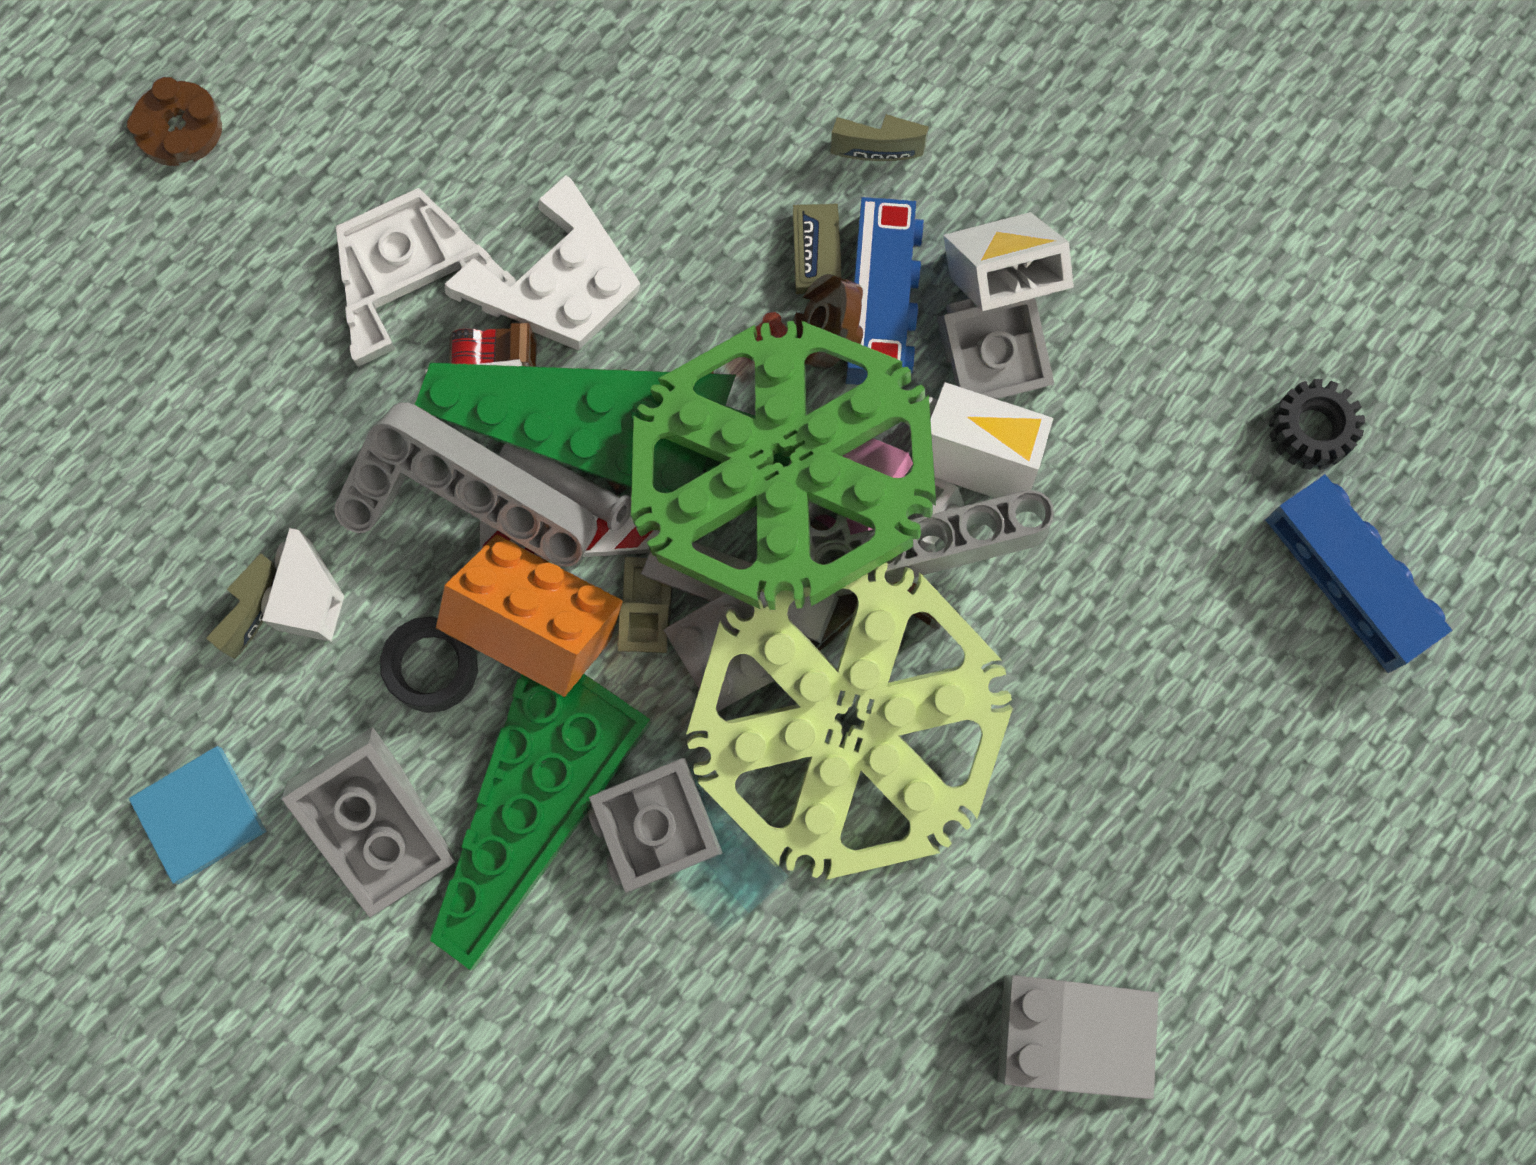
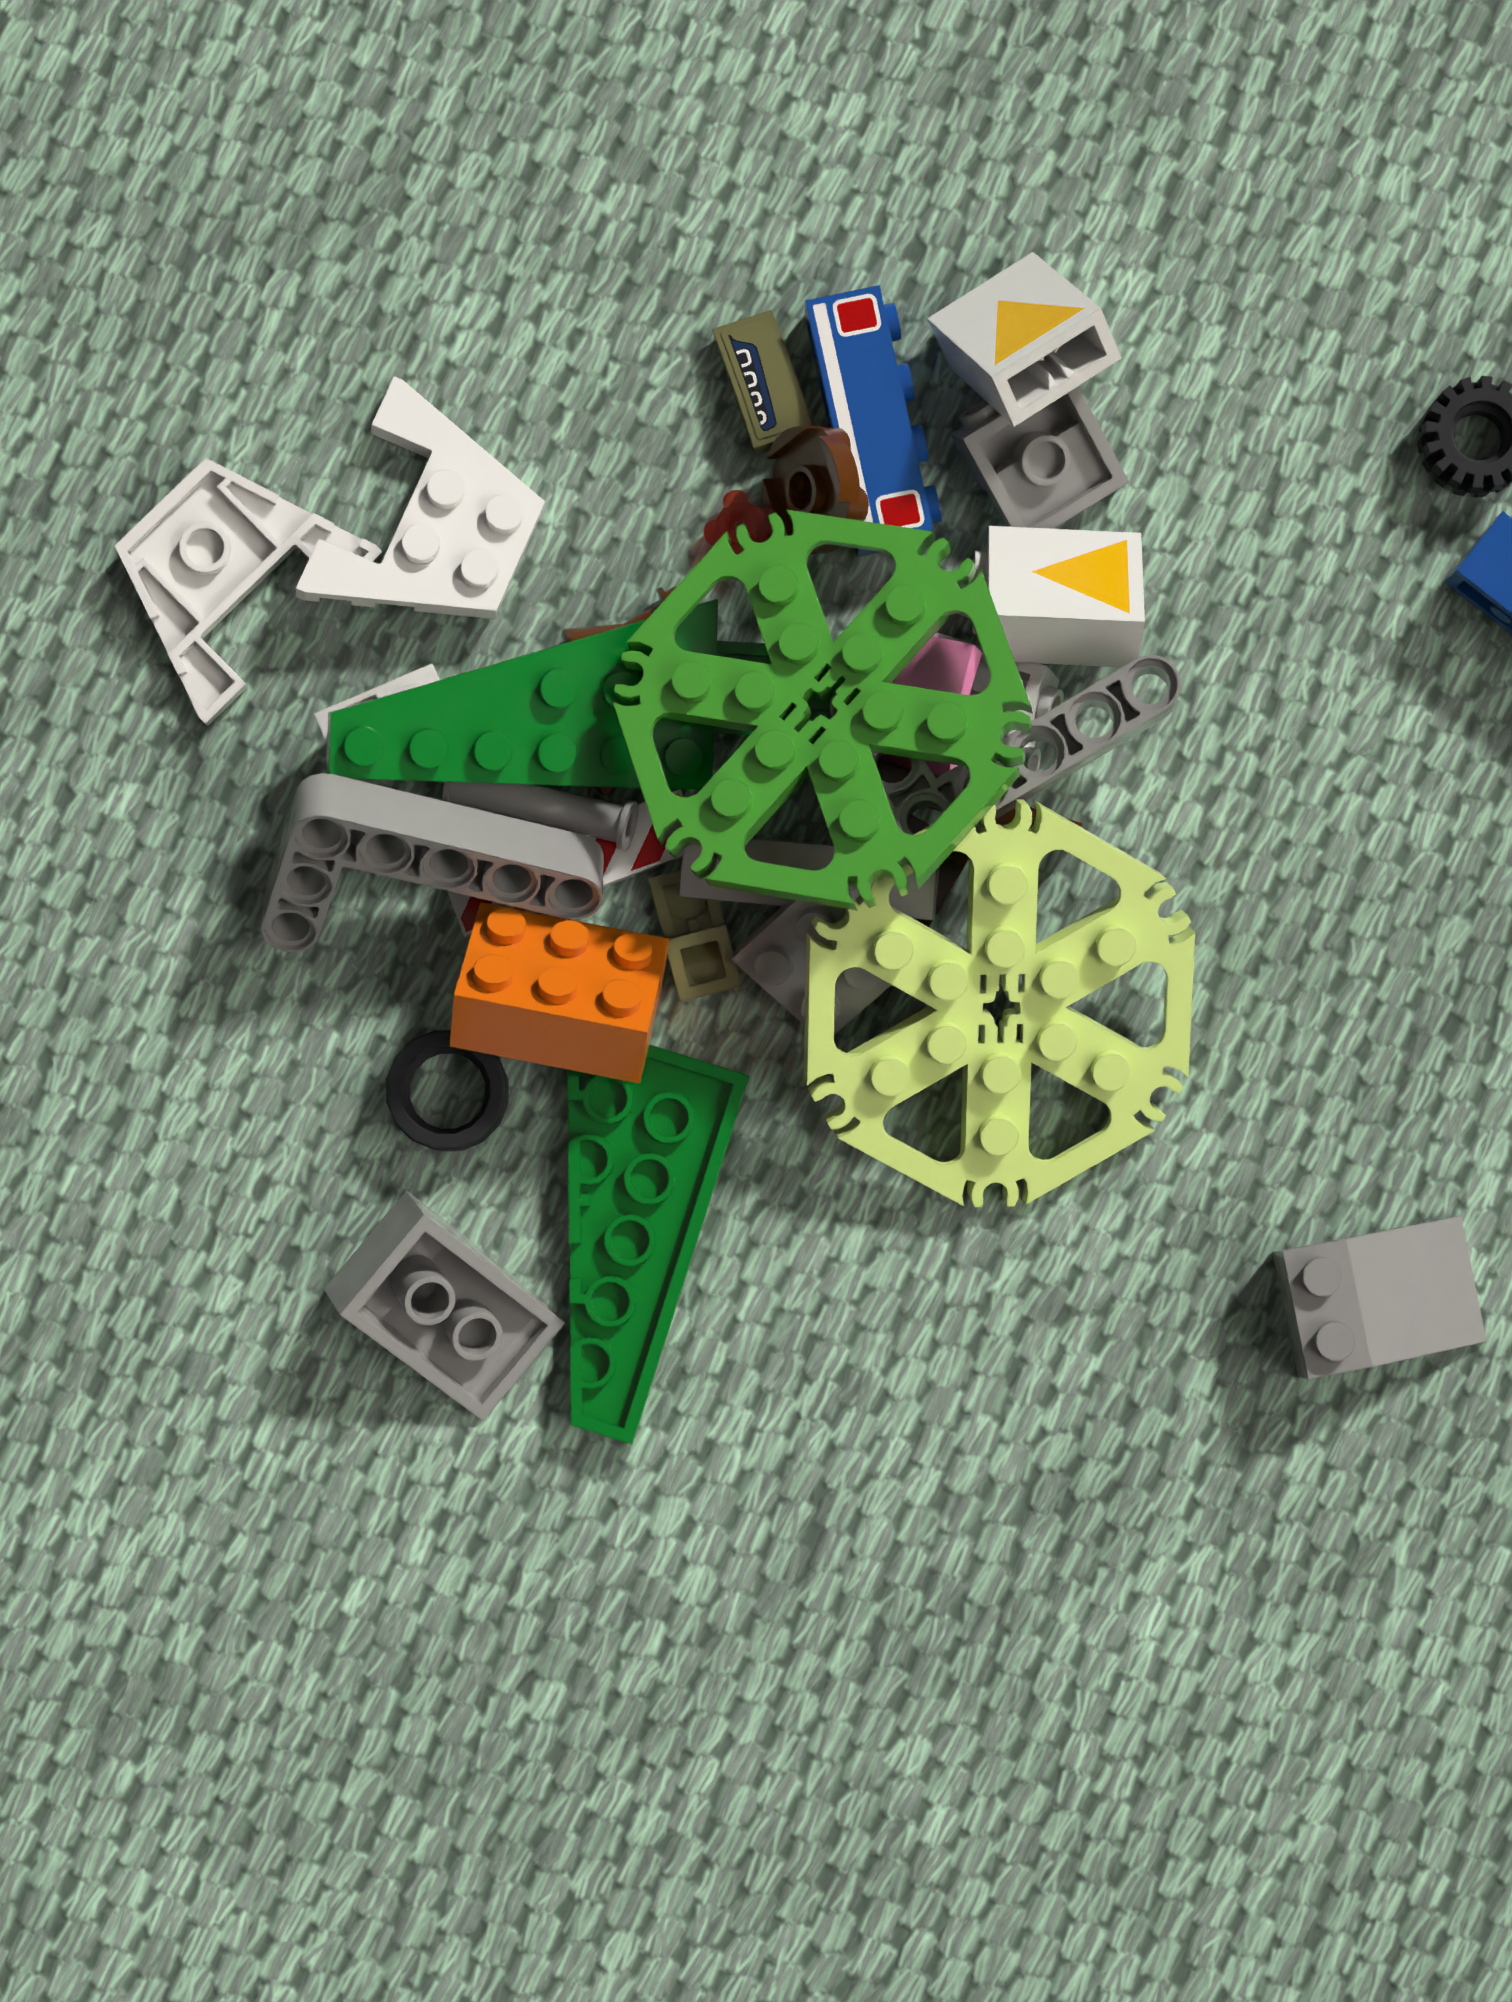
camera: 20 degrees left, 10 degrees up
(197, 815) = (224, 1364): dark azure tile -> none
(245, 619) = (193, 1067): olive slope -> none
(303, 592) = (258, 1050): white slope -> none
(494, 345) = (381, 655): leg -> none
(653, 826) = (798, 1206): light grey plate -> none
(743, 863) = (881, 1196): clear light blue plate -> none
(893, 142) = (821, 199): olive slope -> none

